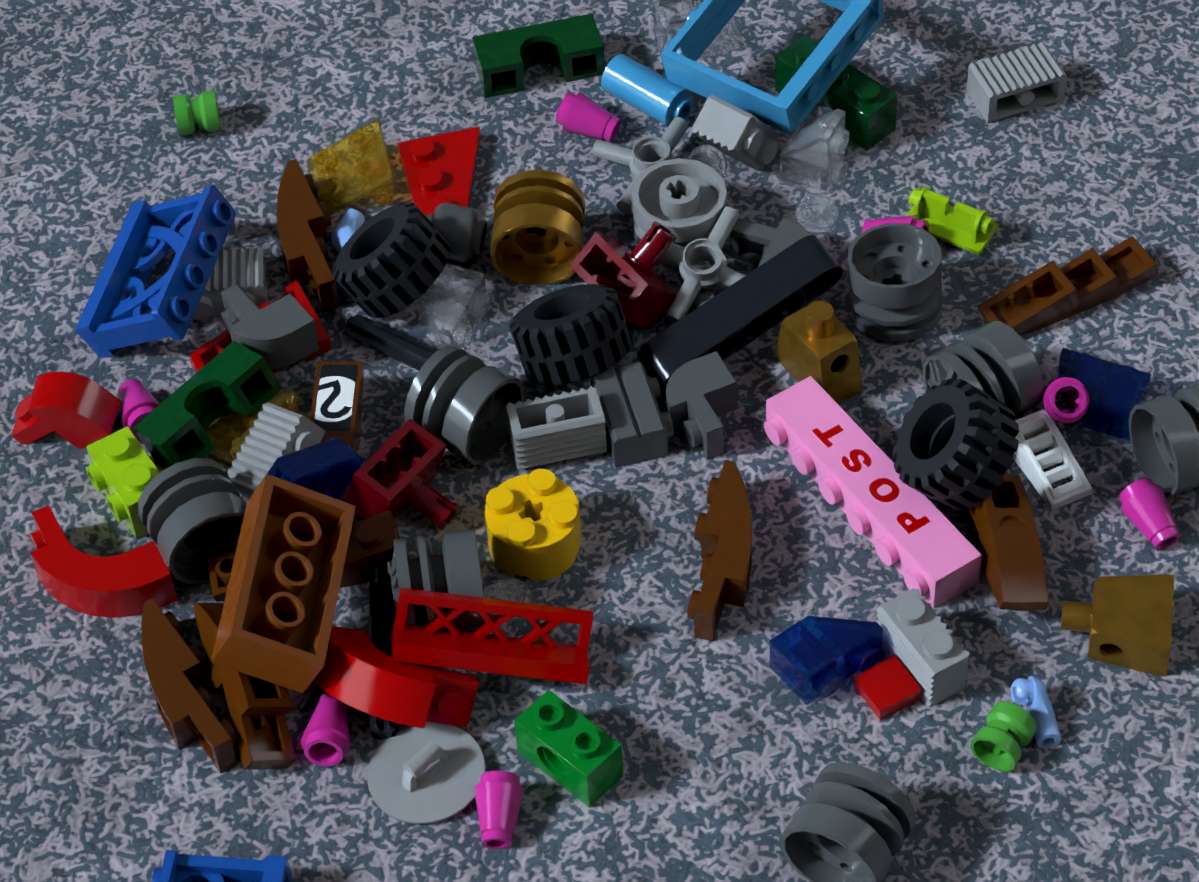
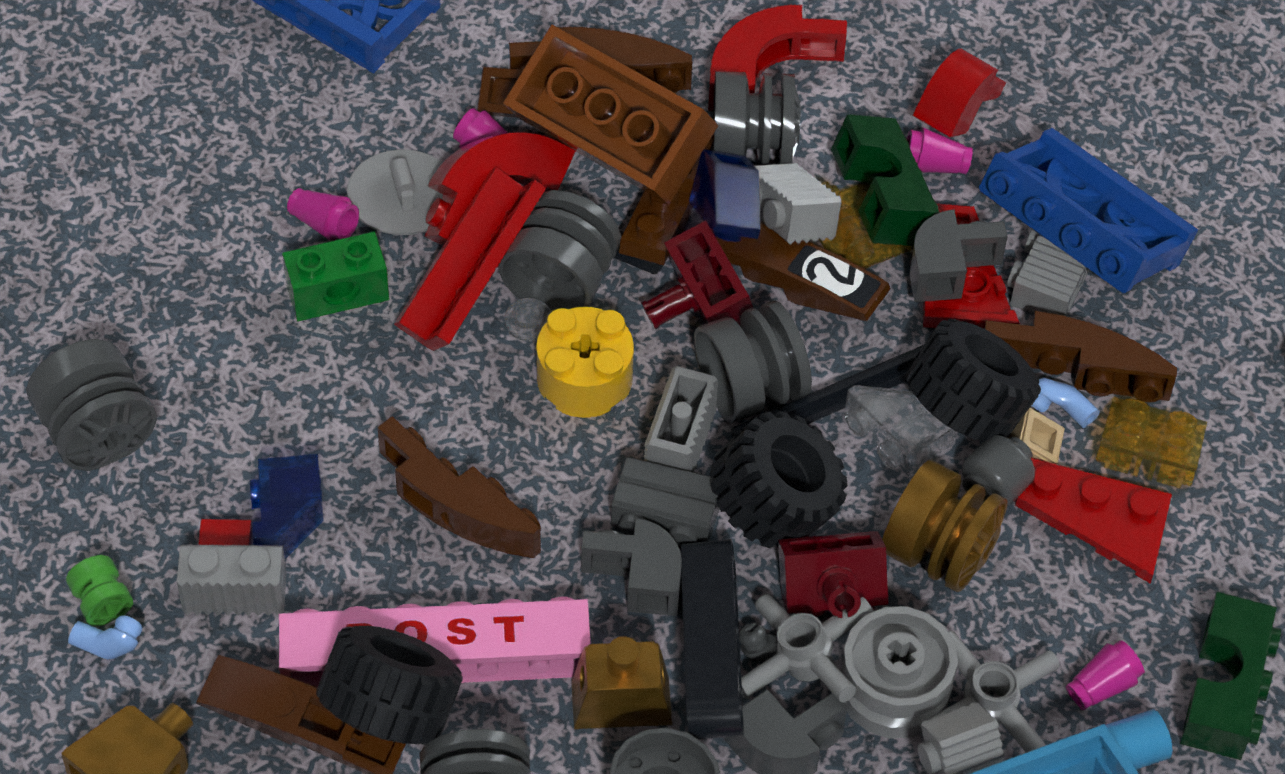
camera: 115 degrees right, 5 degrees up
(122, 472) = (829, 98): lime brick -> none

